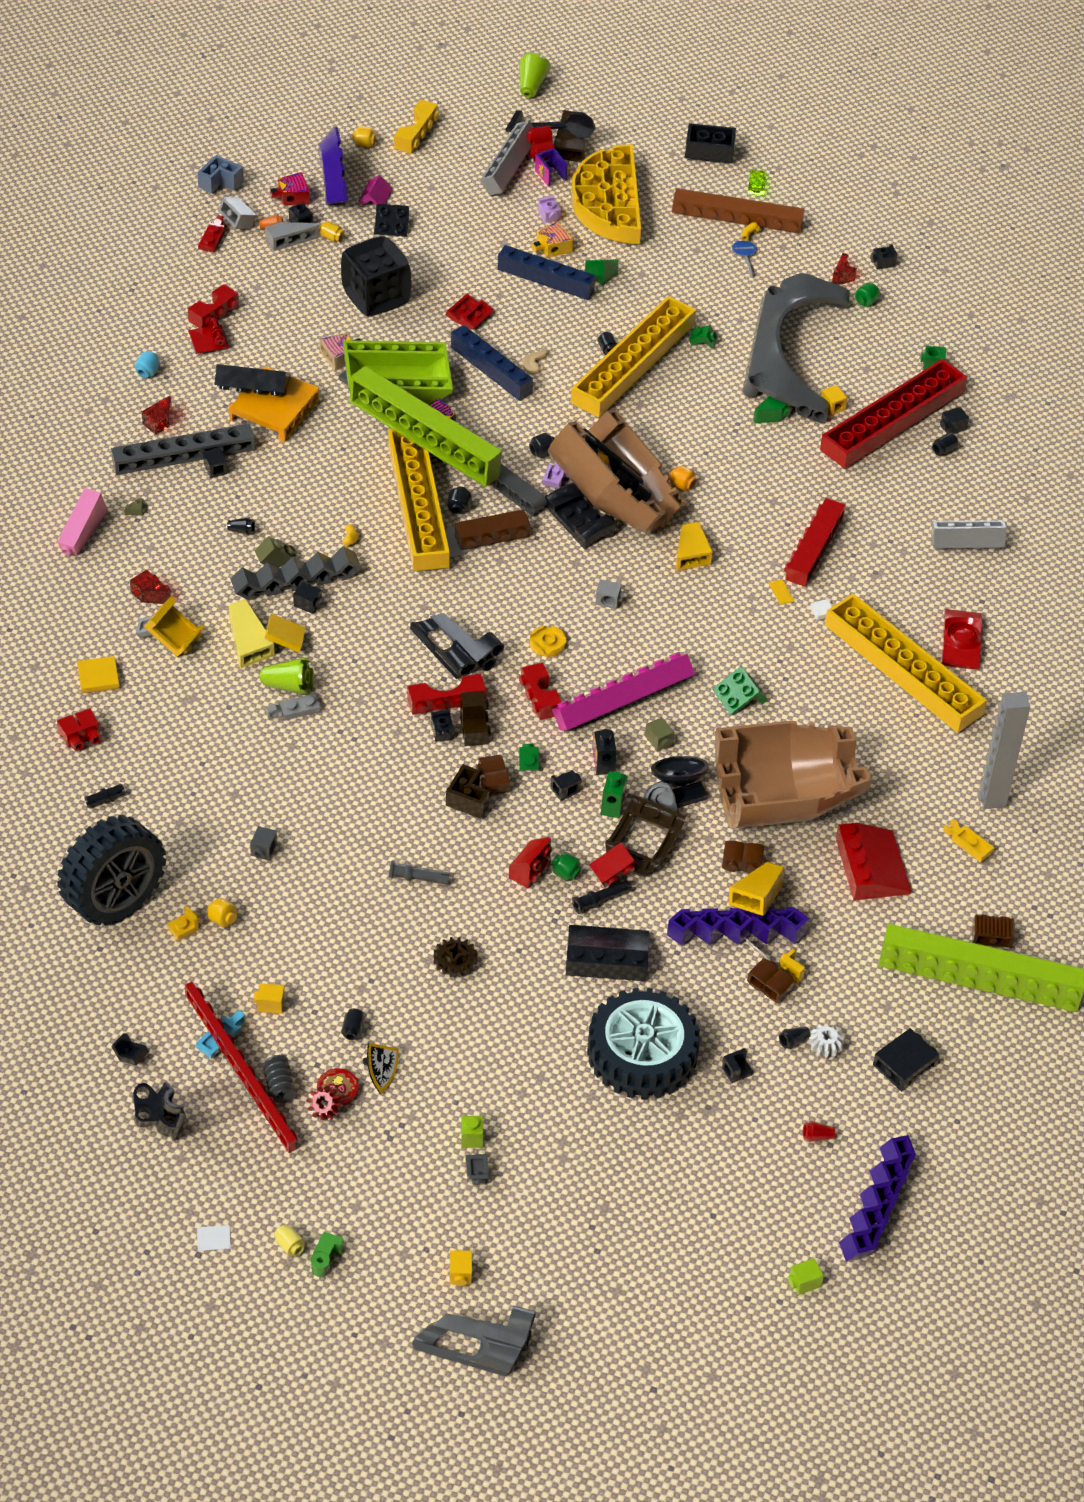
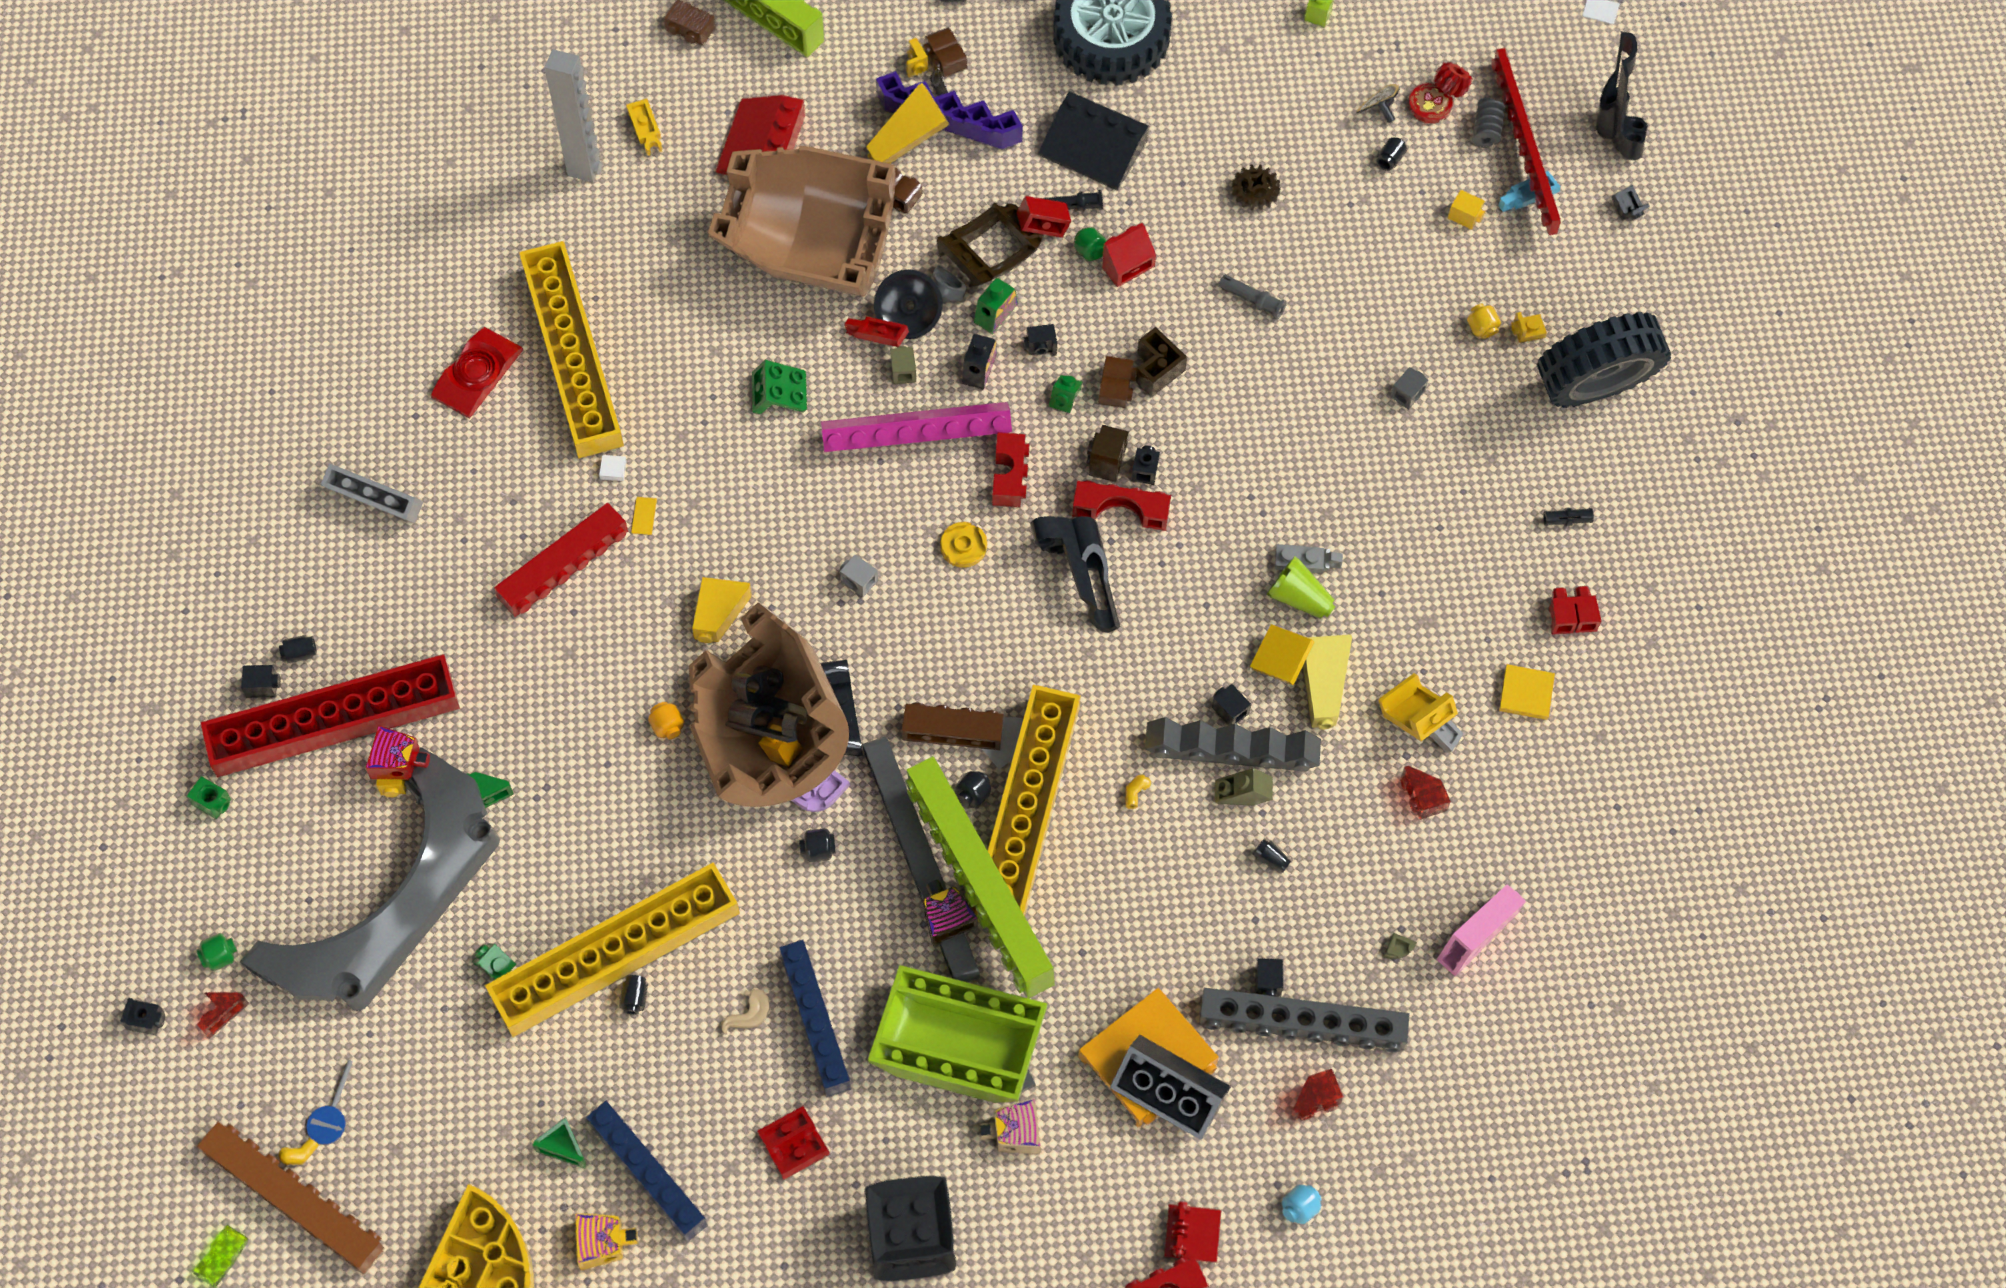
camera: 155 degrees left, 15 degrees up
(690, 746) = (877, 330): none -> red hinge
(835, 394) = (394, 755): none -> red torso

